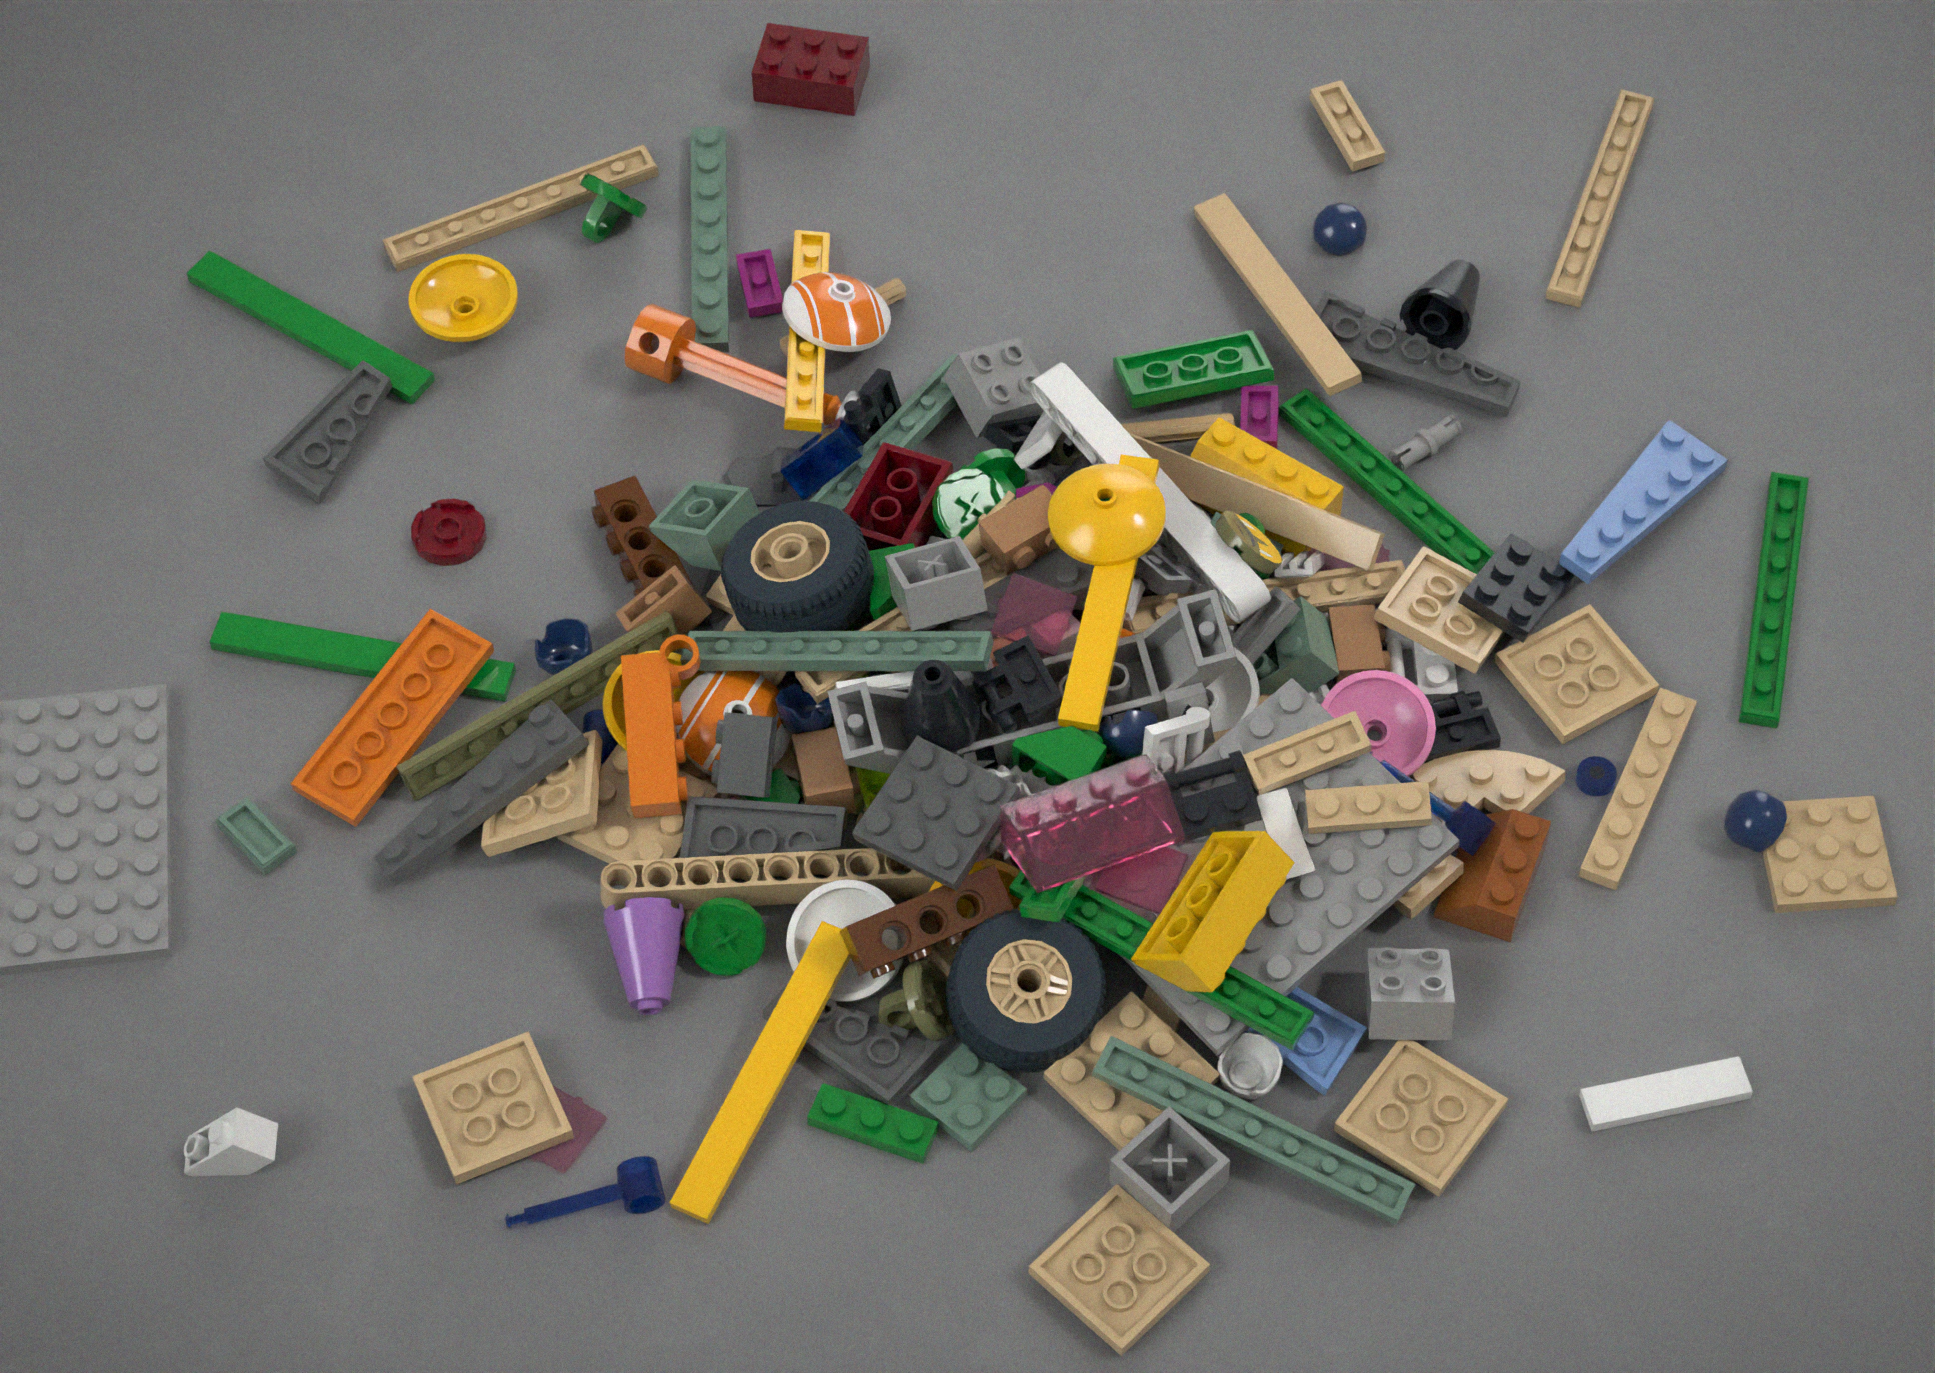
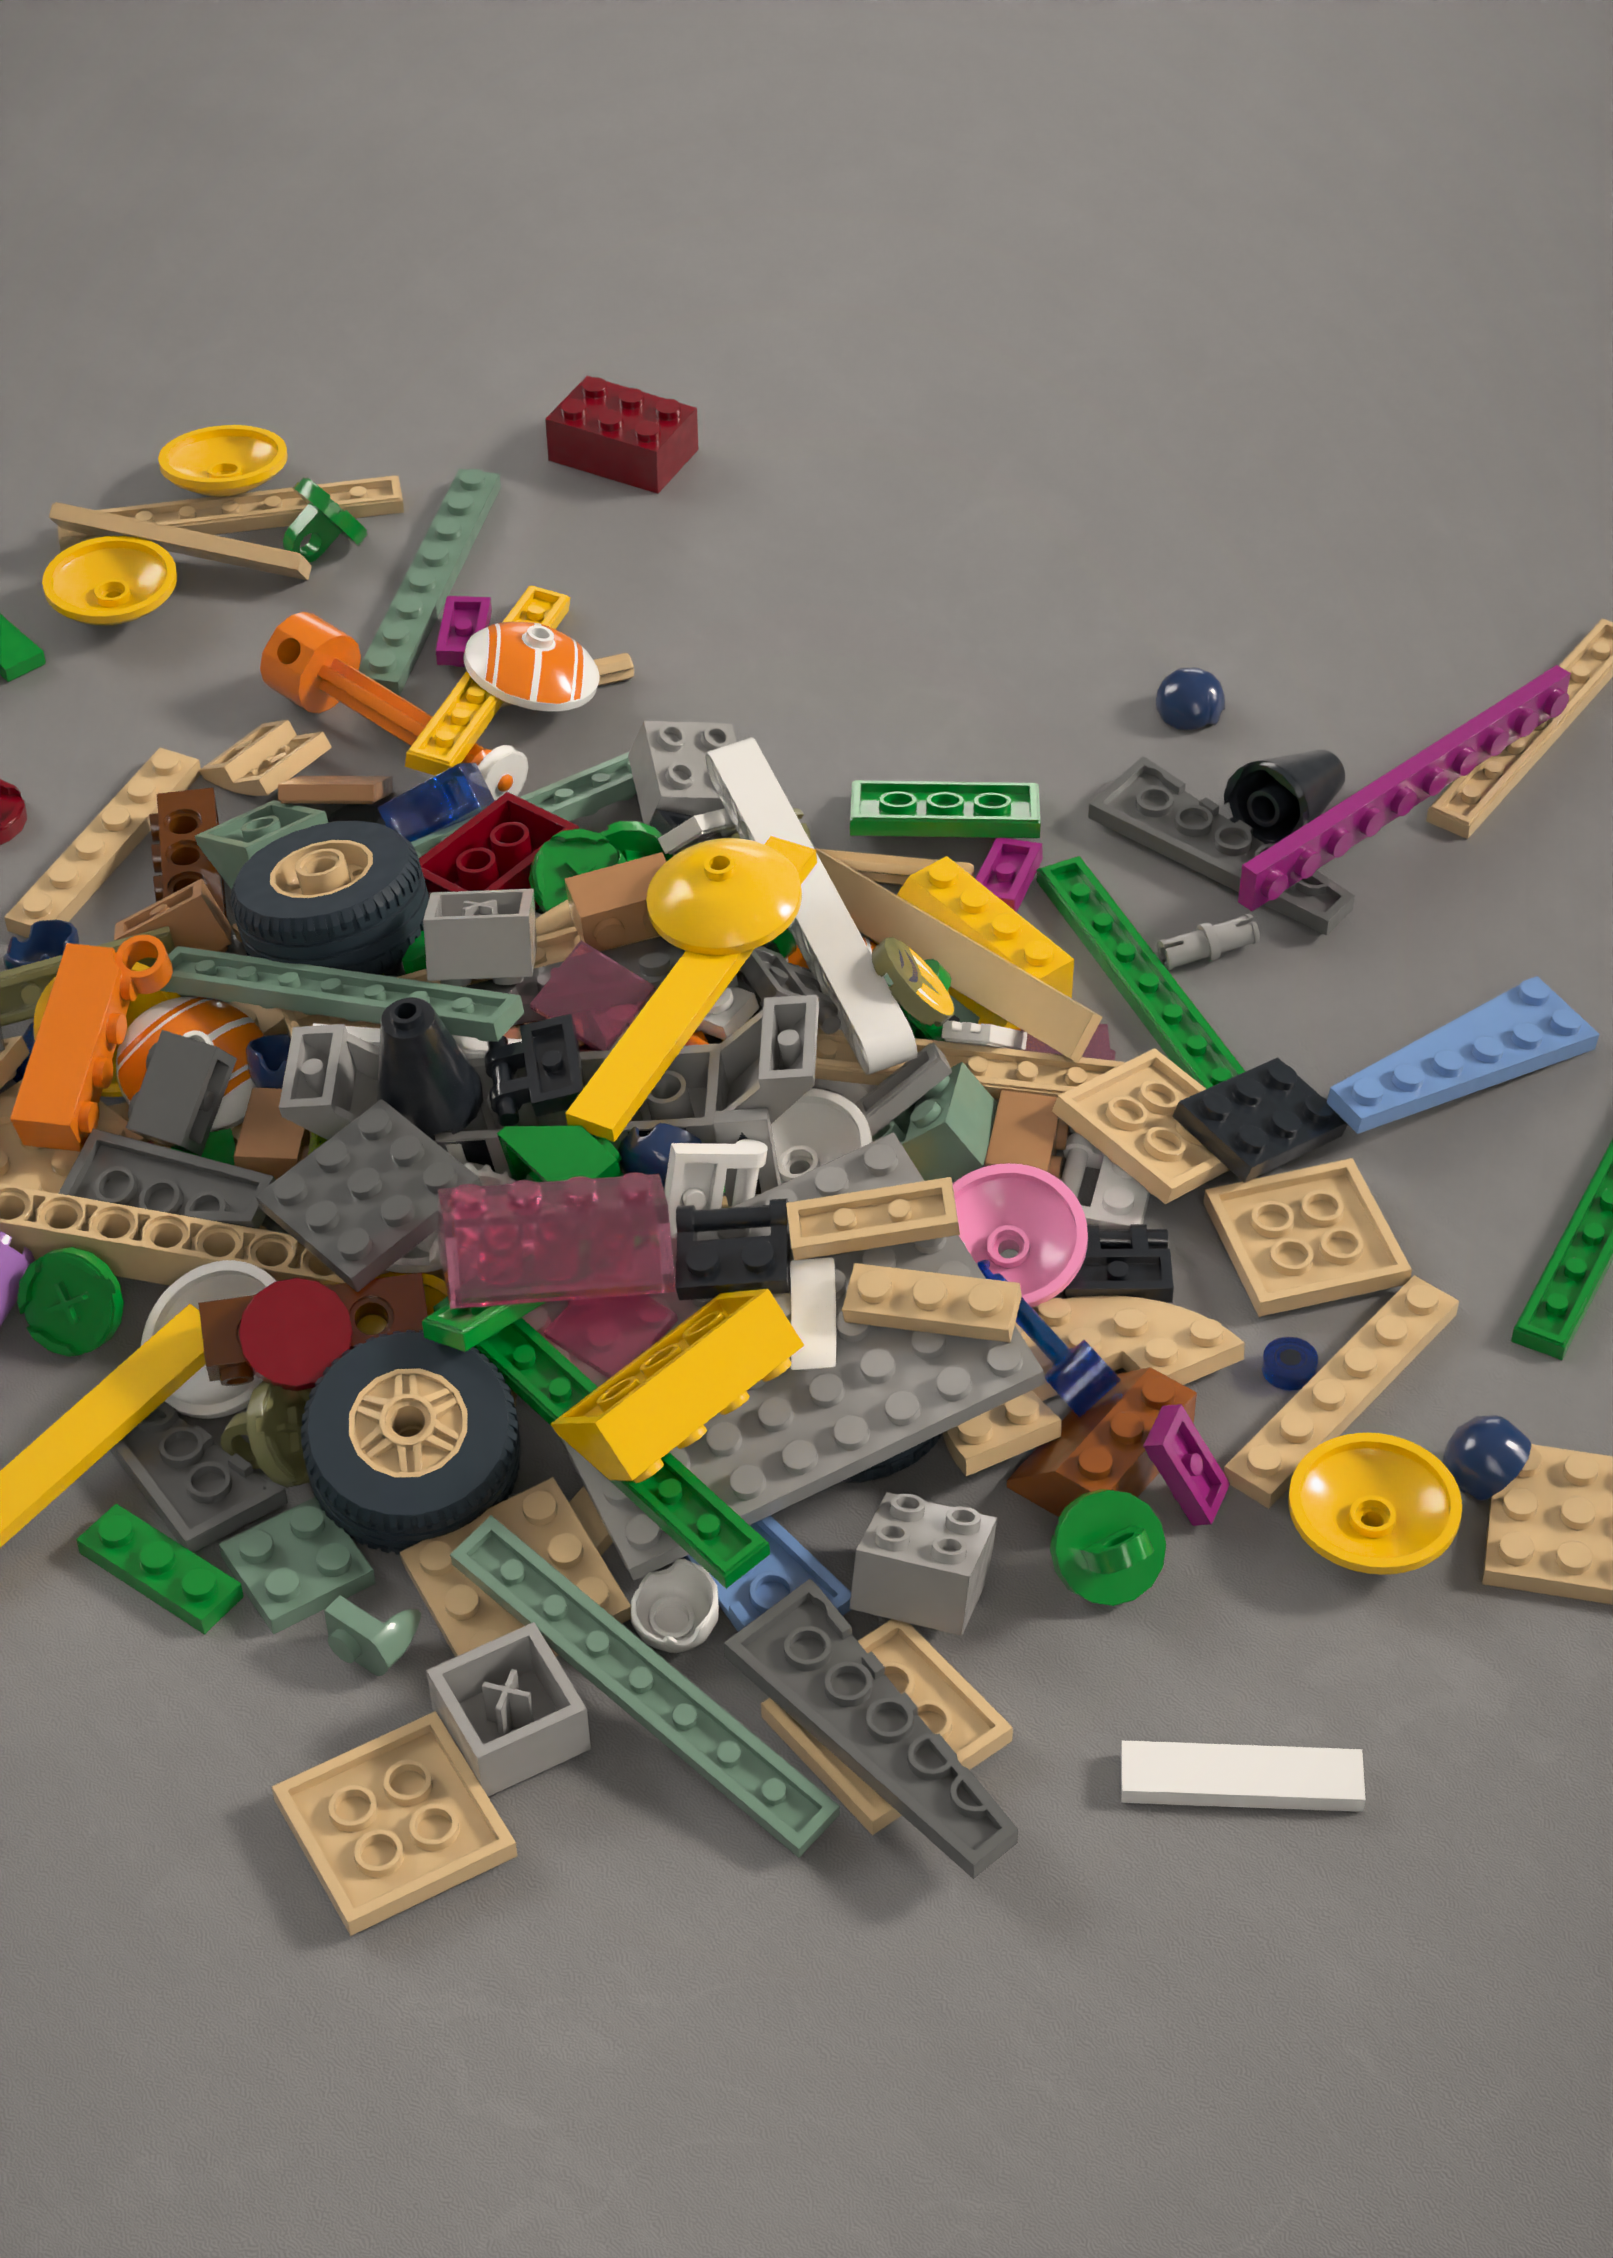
camera: 15 degrees right, 10 degrees down
(500, 247) = (182, 540): none -> tan tile
(502, 161) = (223, 459): none -> yellow dish
(560, 537) = (102, 843): none -> tan plate
(654, 435) = (265, 759): none -> tan slope
(732, 456) = (335, 789): none -> medium nougat tile
(878, 404) = (533, 761): black plate -> none
(923, 933) = (294, 1332): none -> dark red tile
(1045, 1143) = (367, 1641): none -> sand green plate
(1278, 295) = (1082, 751): tan tile -> none
(1347, 125) = (1241, 597): tan plate -> none
(1388, 1104) = (840, 1694): none -> dark grey wing
(1527, 951) = (1108, 1547): none -> green tile
(1530, 283) = (1402, 788): none -> magenta plate
(1560, 876) = (1186, 1465): none -> magenta plate
(1697, 858) = (1376, 1484): none -> yellow dish

